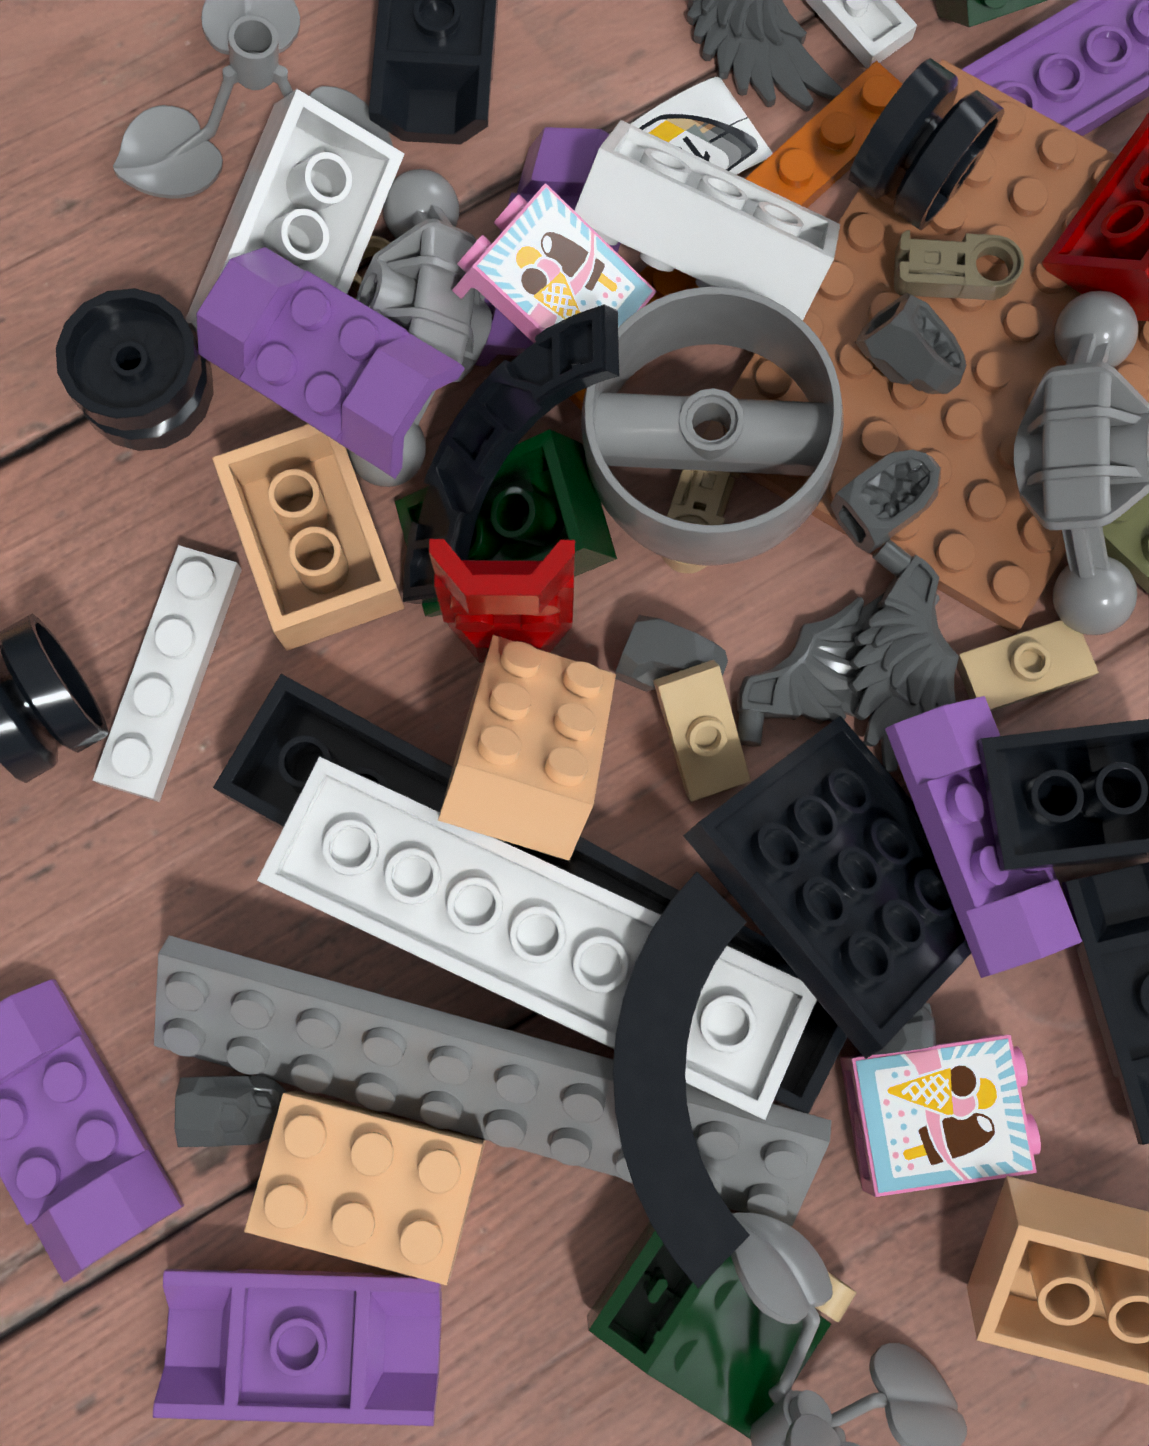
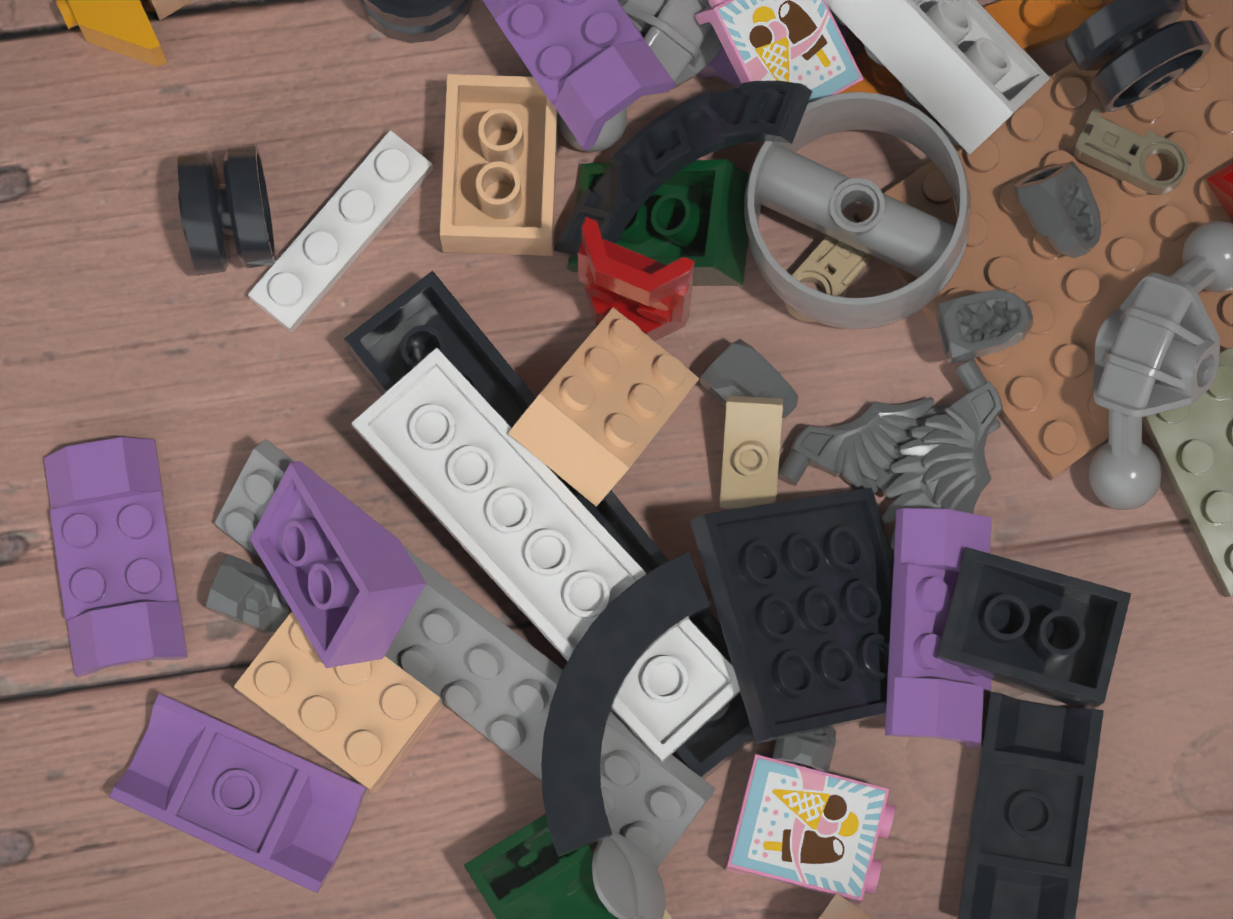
camera: 25 degrees right, 0 degrees up
(307, 1054) = (336, 569): none -> medium lavender slope
(1026, 665) = (1045, 510): tan plate -> none

